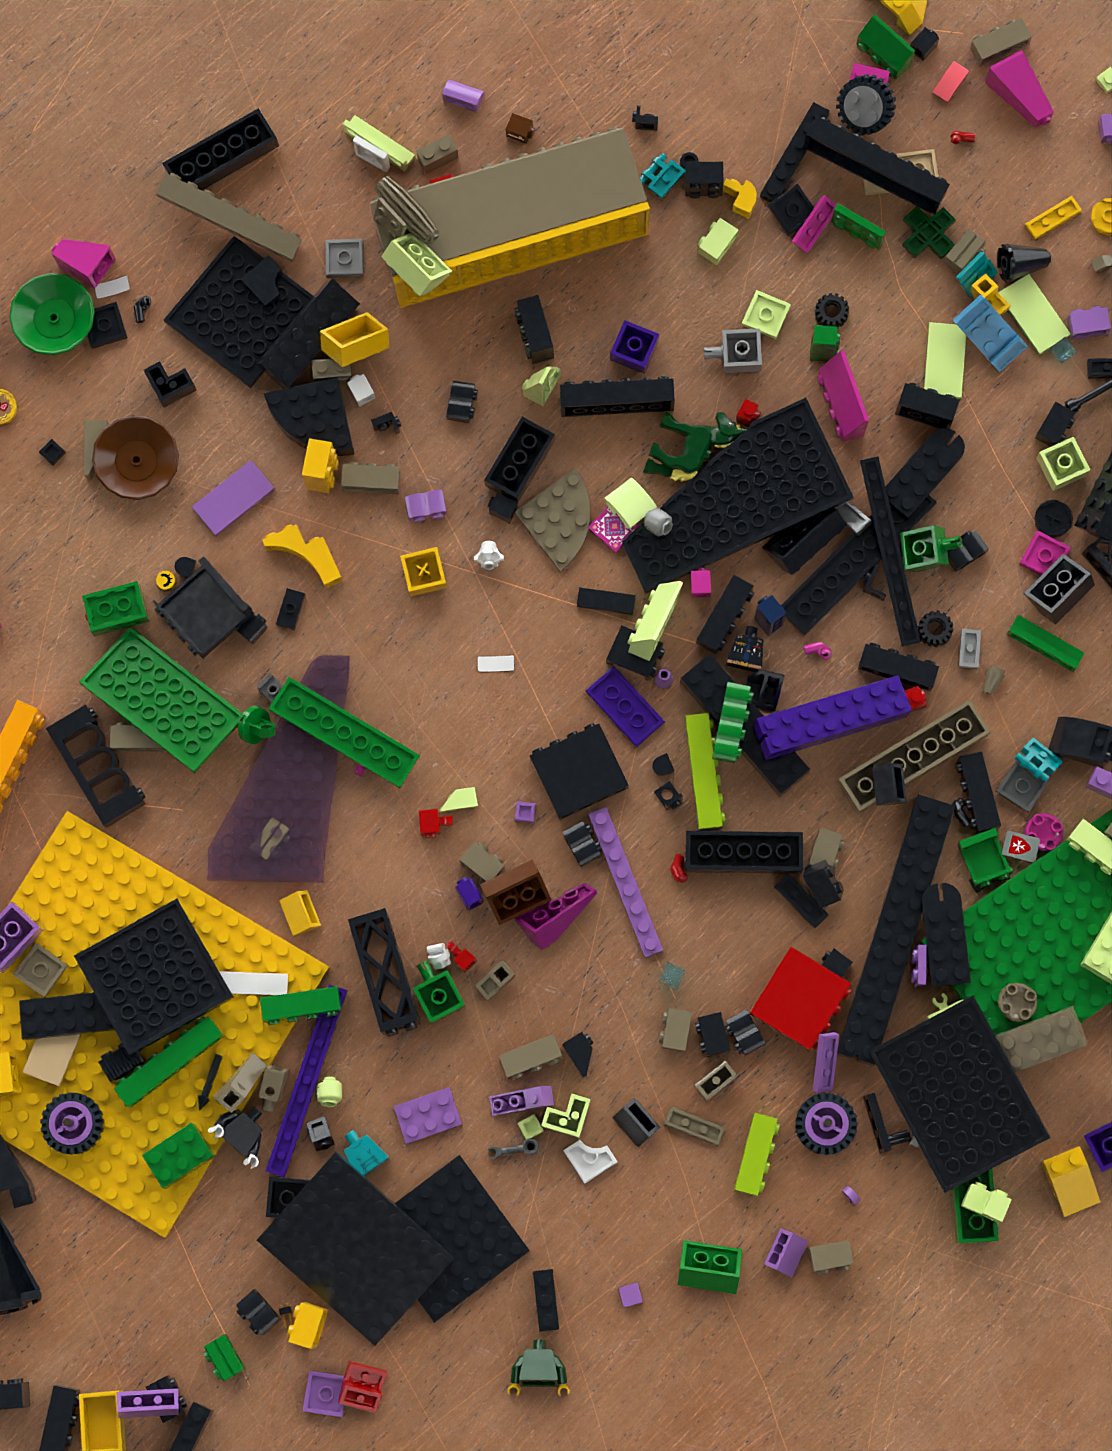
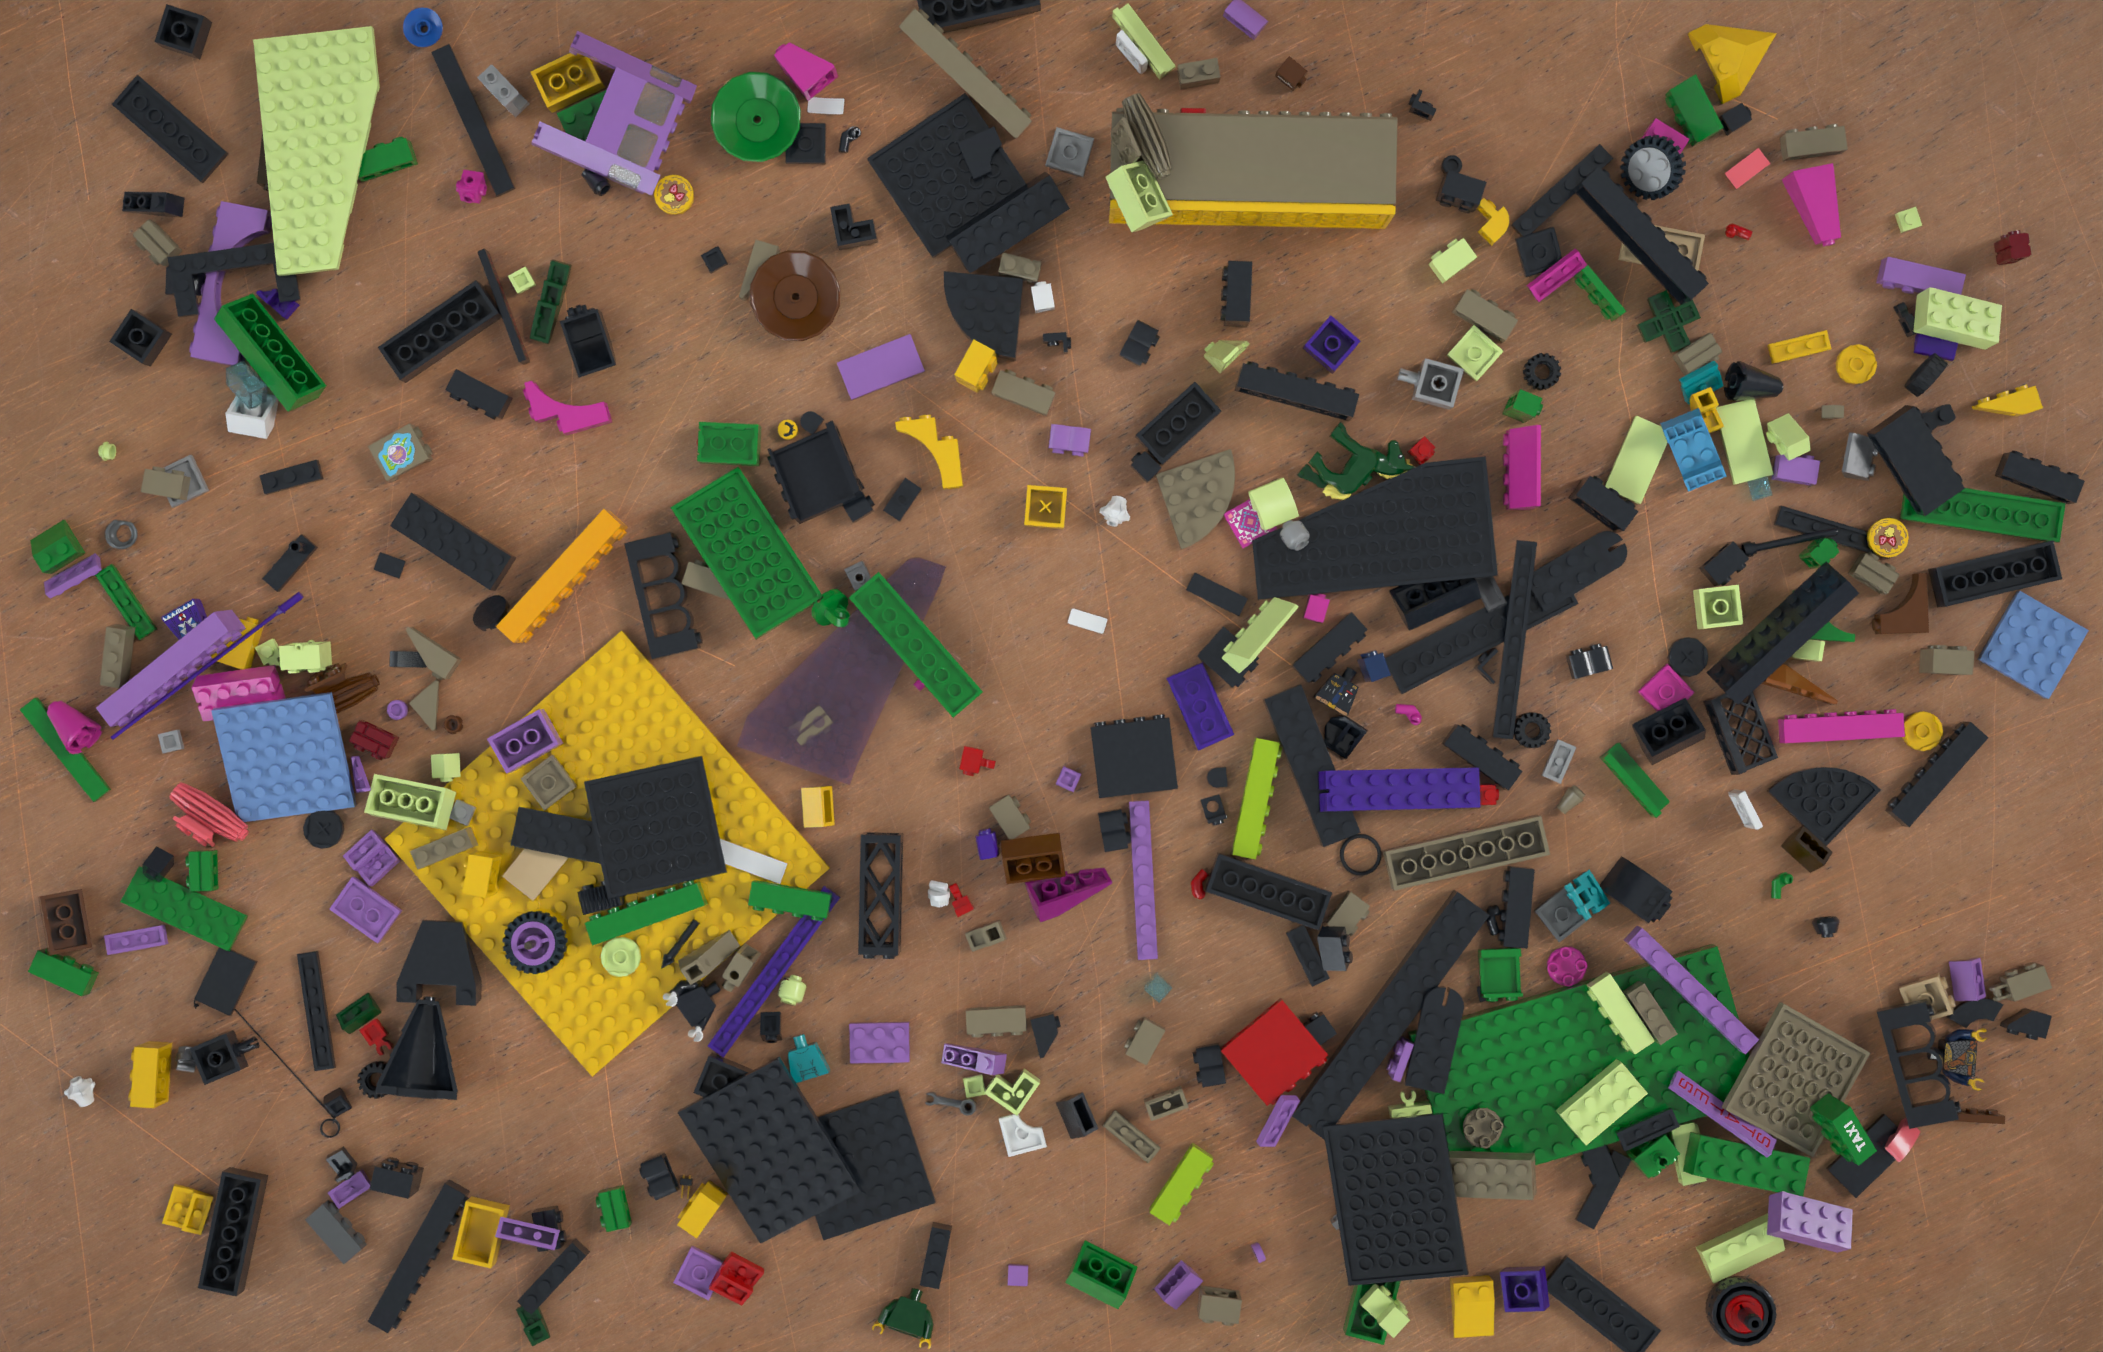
camera: 10 degrees right, 10 degrees up
(157, 1112) = (621, 956): none -> yellowish green tile
(178, 1155) = (628, 1006): green brick -> none
(354, 339) = (1052, 245): yellow piece -> none
(435, 984) = (922, 921): green brick -> none
(460, 799) = (1009, 746): yellowish green slope -> none
(663, 682) = (1241, 691): medium lavender cone -> none
(666, 179) = (1421, 177): teal plate -> none
(713, 1034) = (1178, 1056): black brick -> none
(731, 723) = (1298, 764): green brick -> none
(763, 278) = (1485, 315): none -> dark tan brick
(822, 776) = (1358, 872): none -> black tyre
(826, 1123) = (1258, 1178): wheel -> none
(883, 1140) = (1307, 1211): black piece -> none
(889, 784) = (1432, 875): black brick -> none
(927, 548) = (1561, 650): green brick -> none
(1020, 846) = (1539, 973): light grey sticker -> none
(1070, 295) = (1788, 437): none -> yellowish green brick

